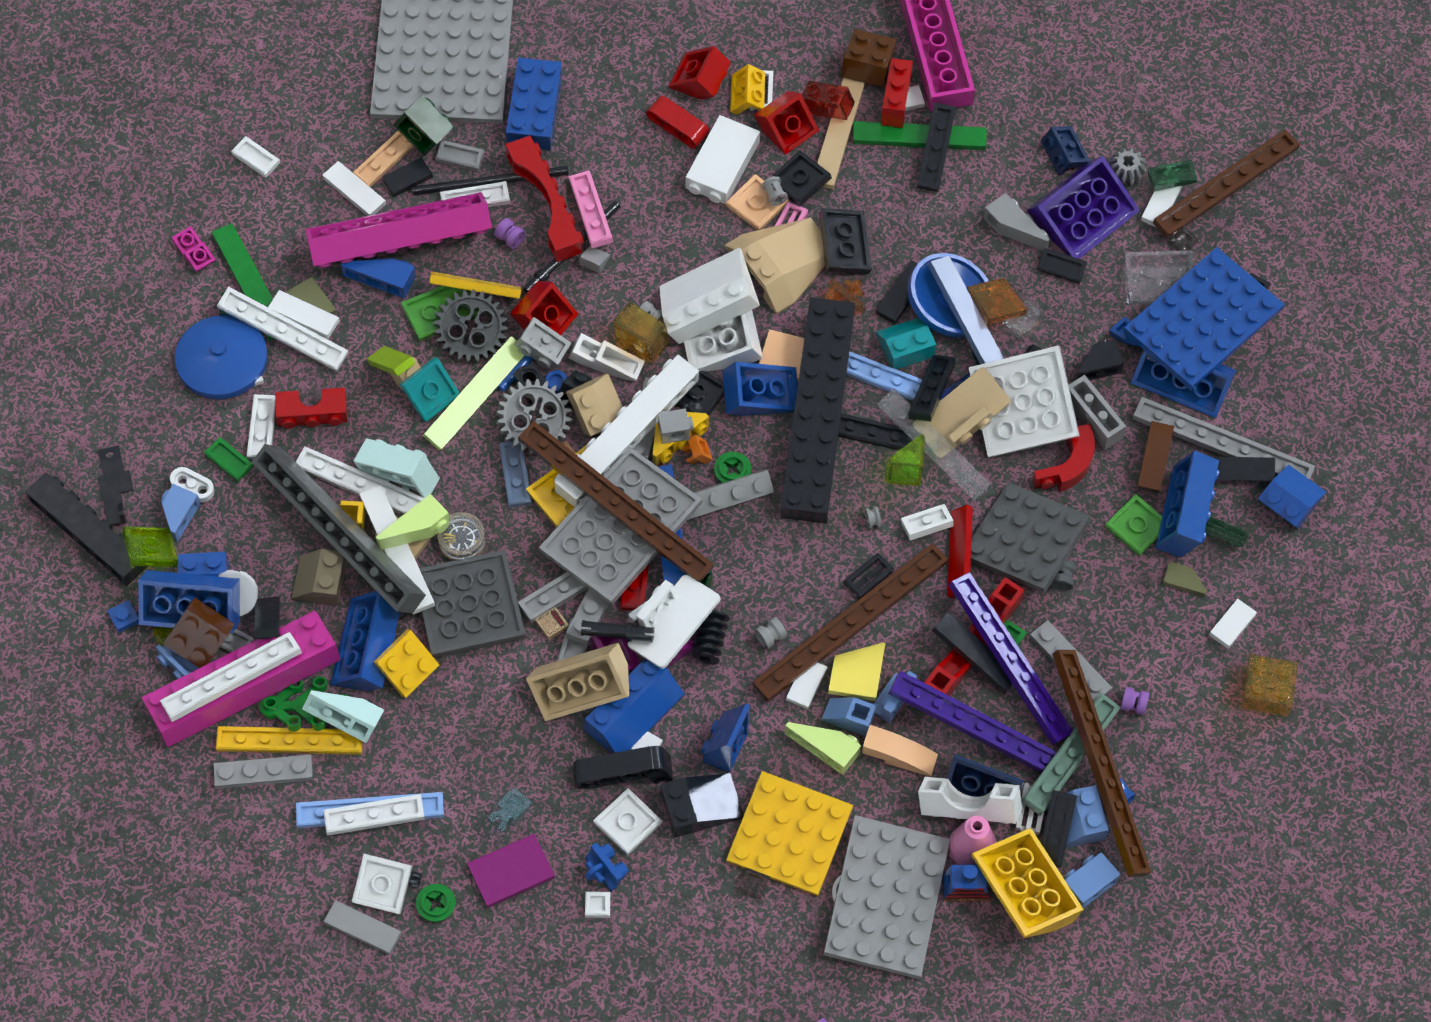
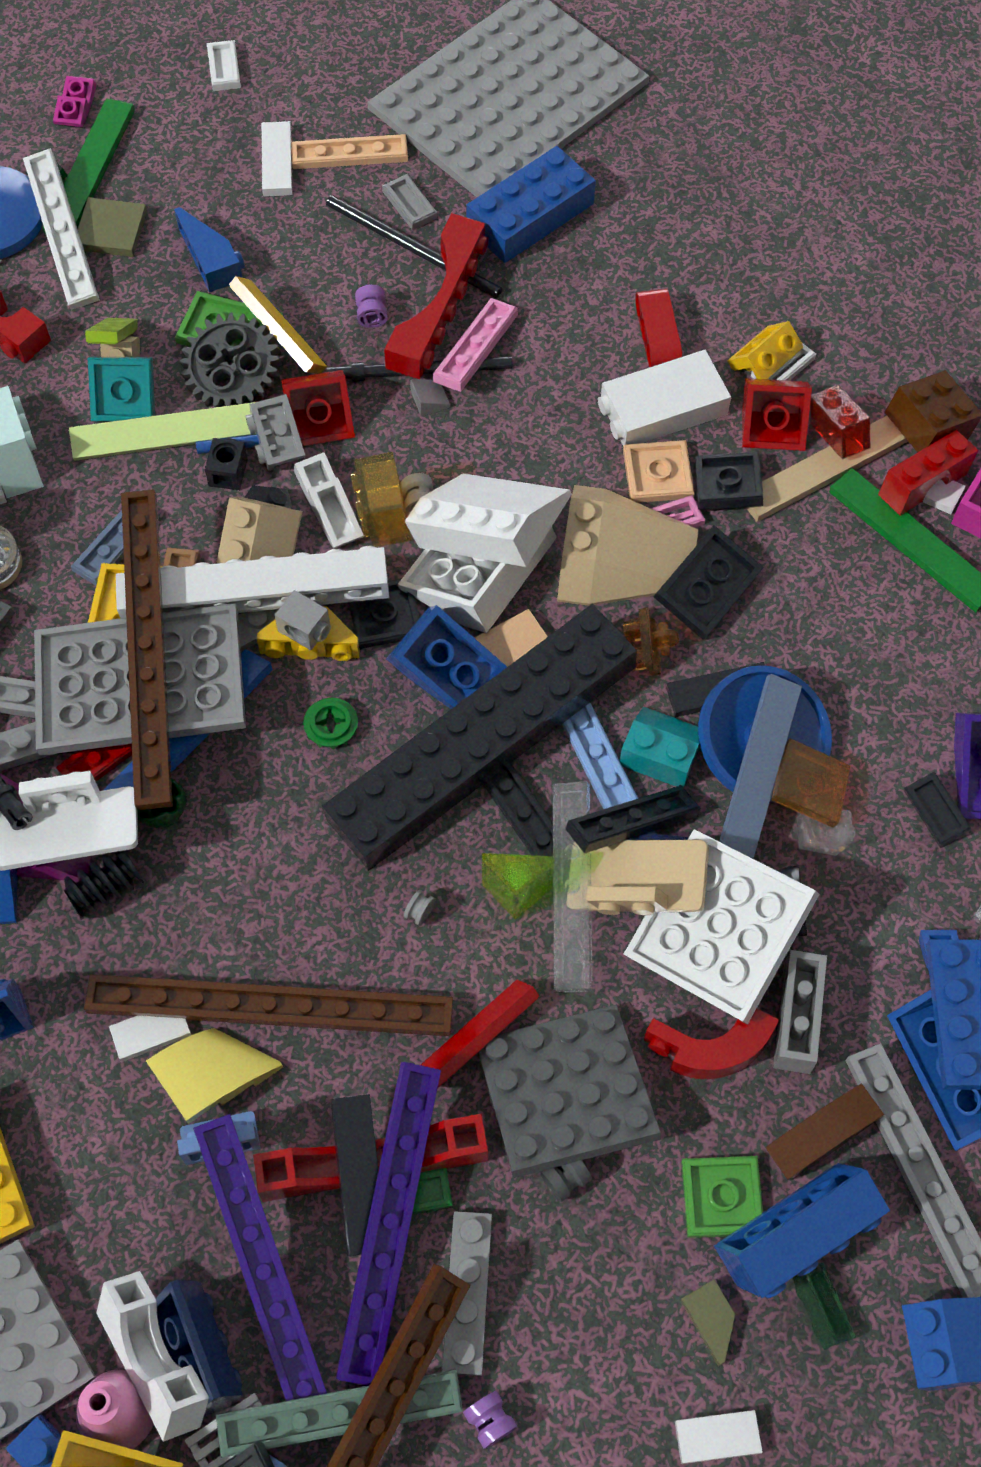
camera: 45 degrees right, 0 degrees up
(304, 314) = (94, 230): white tile -> none
(398, 229) = (262, 216): dark pink brick -> none
(407, 176) = (339, 183): black tile -> none
(423, 125) = (393, 138): brick -> none
(494, 193) = (380, 250): white tile -> none
(515, 409) = (172, 471): light grey gear -> none
(555, 378) = (255, 477): blue tile -> none
(699, 450) = (316, 672): orange tile -> none
(700, 73) = (735, 300): red slope -> none
(733, 492) = (297, 746): light grey plate -> none
(771, 632) = (172, 938): light grey wheel -> none
(782, 196) = (683, 469): light grey bush -> none
(828, 745) = (88, 1134): yellowish green slope -> none
(850, 714) = (147, 1114): medium blue slope -> none
(855, 588) = (347, 984): black tile -> none
(899, 751) = (154, 1210): light nougat slope -> none
(927, 522) = (473, 967): white plate -> none
(936, 147) = (915, 562): black plate -> none
(1010, 221) = (923, 711): light grey slope -> none
(1102, 361) = (870, 957): black slope -> none
(1246, 468) = (924, 1247): black tile -> none

